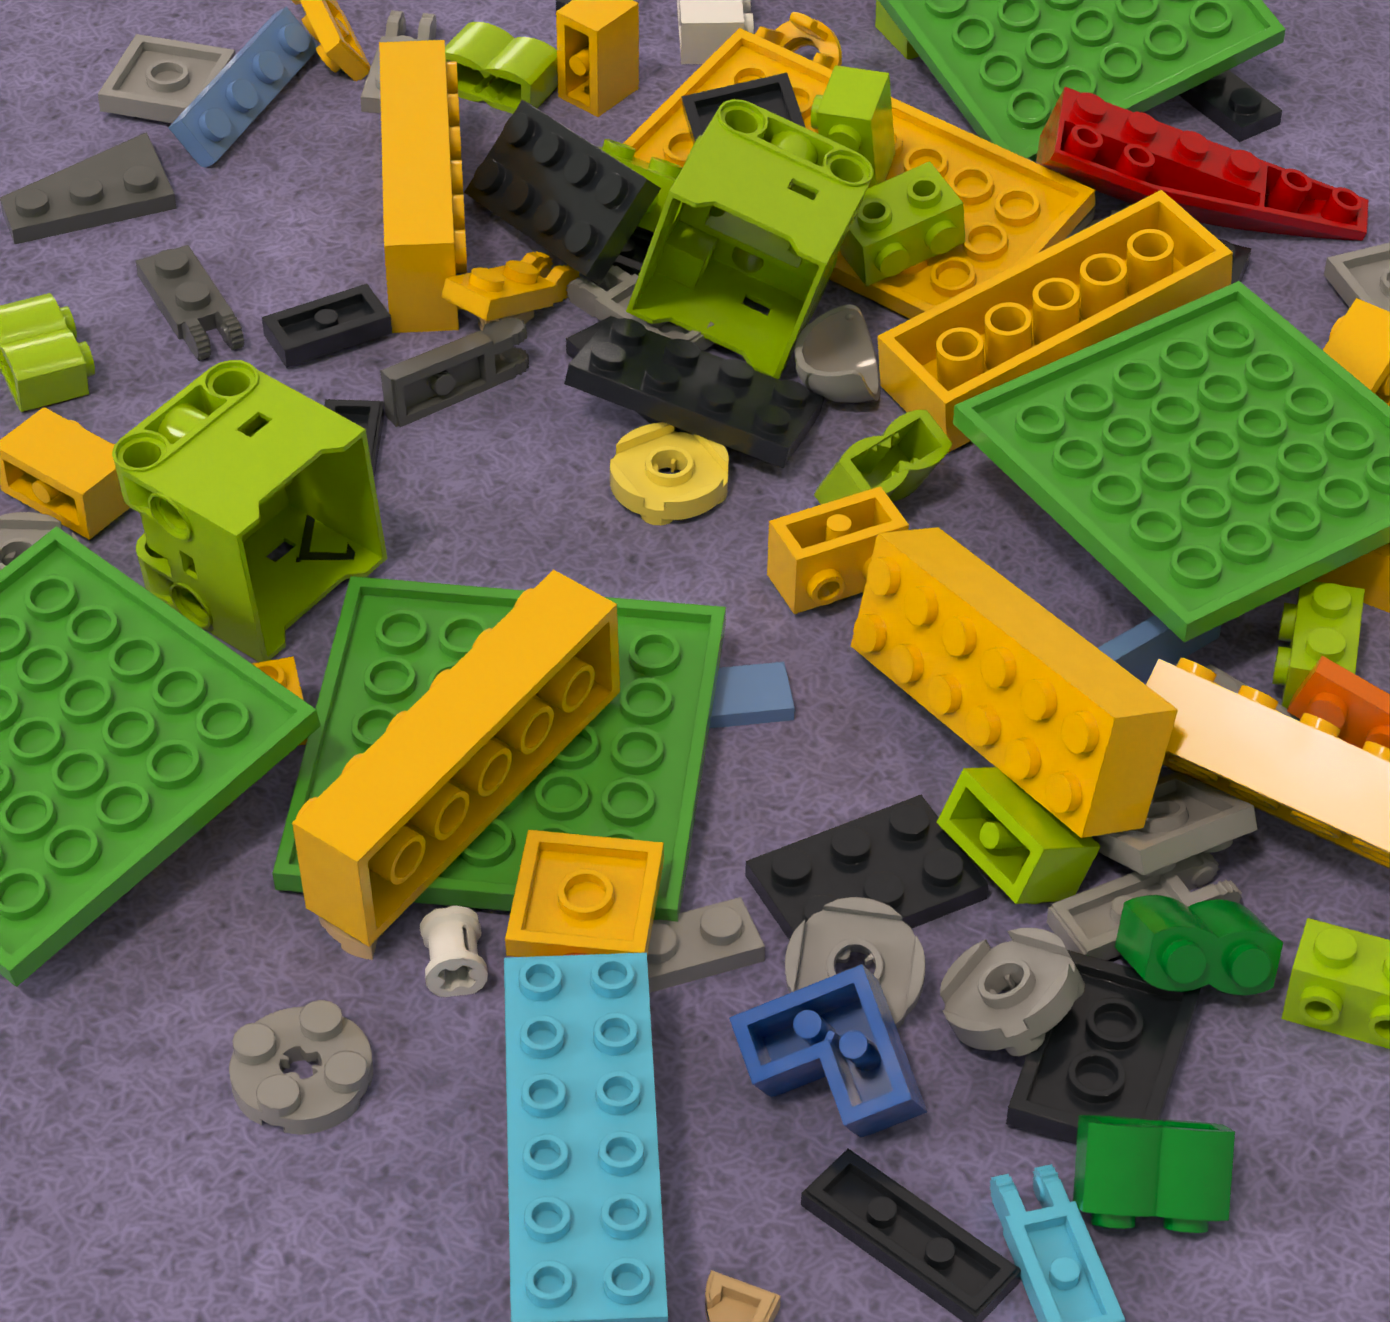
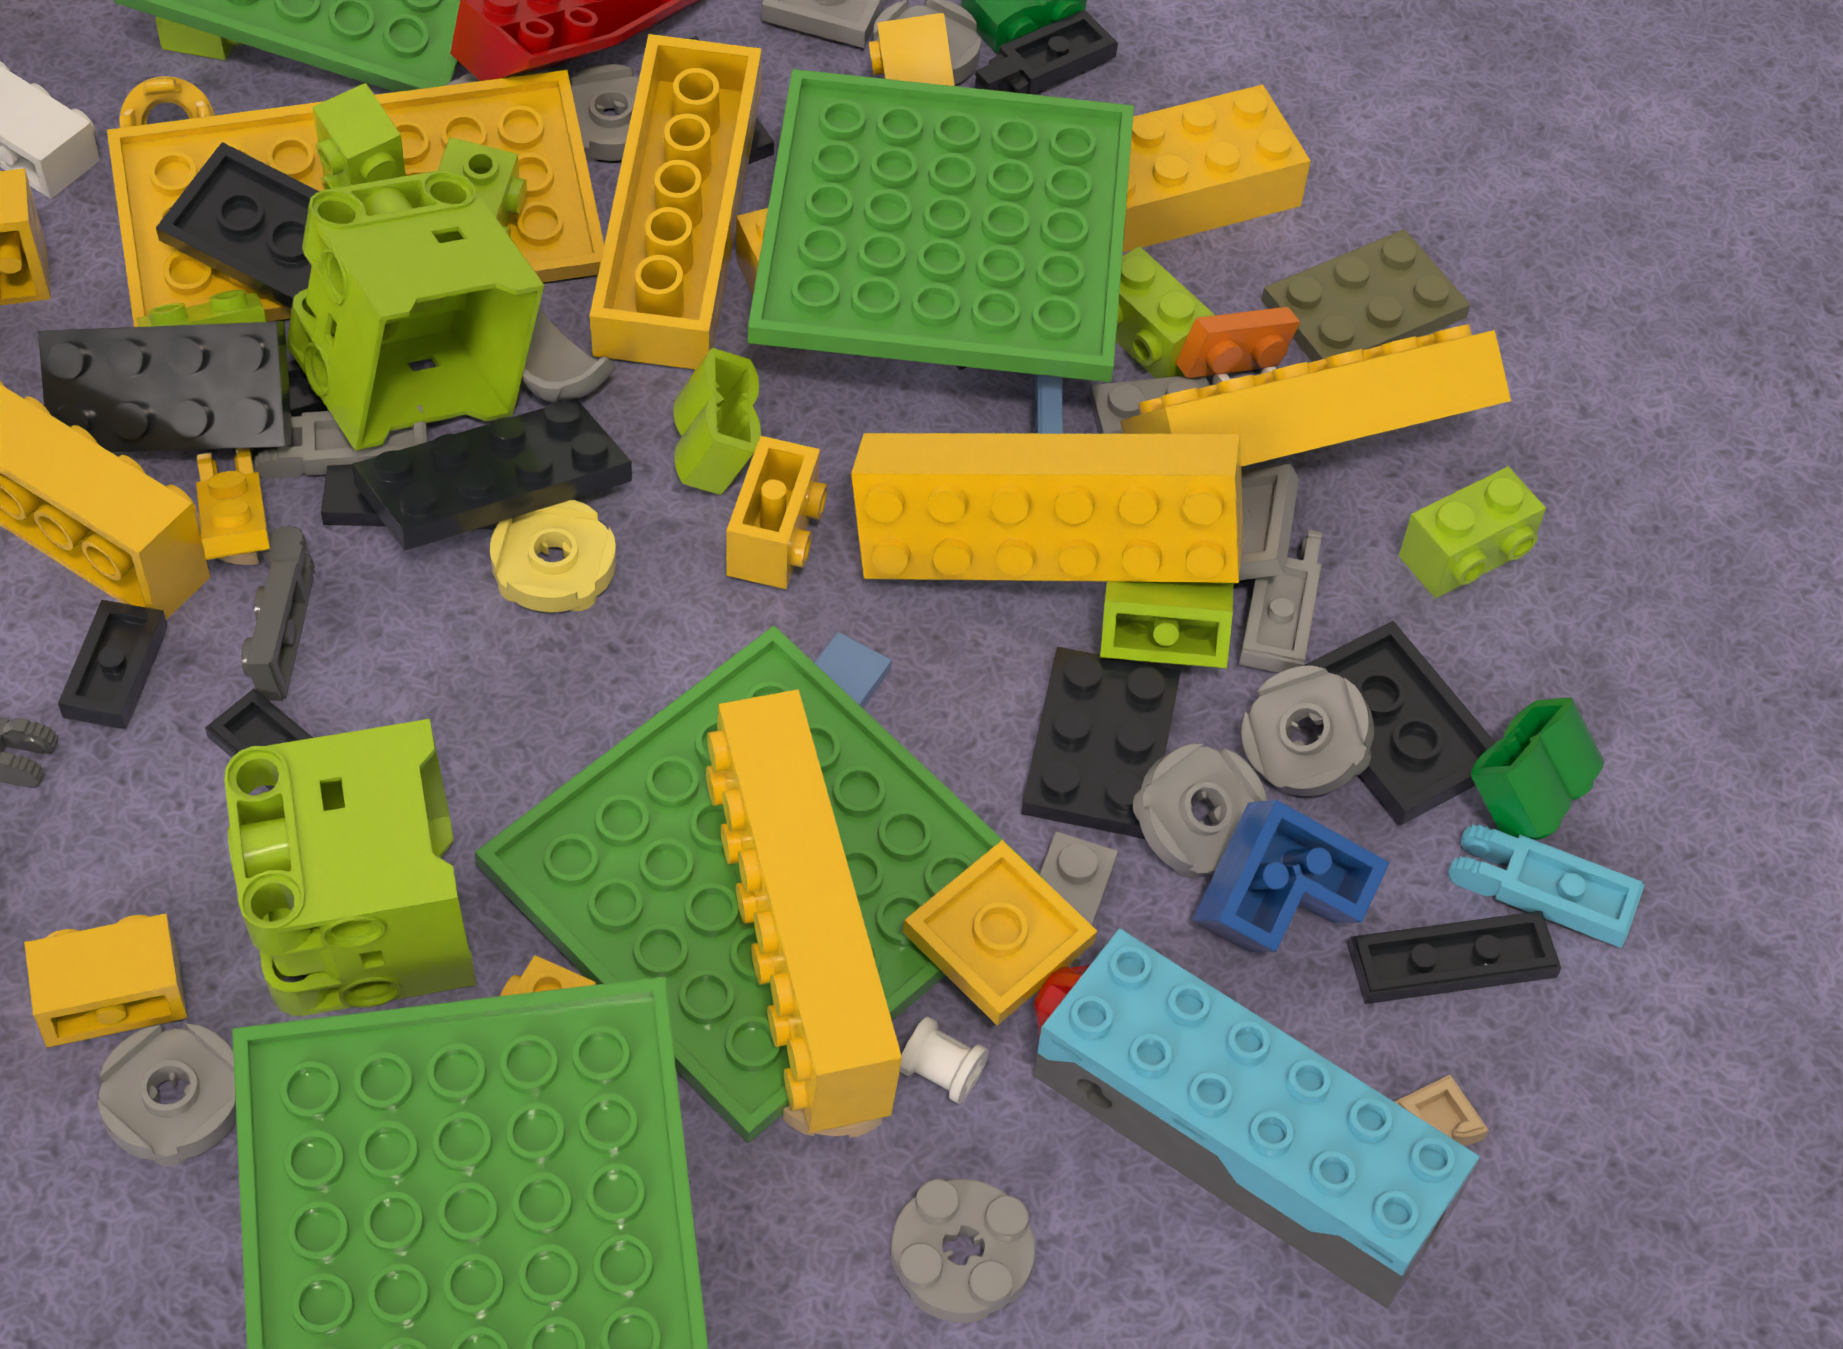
camera: 55 degrees left, 10 degrees up
(1198, 945) = (1366, 593): green brick -> none

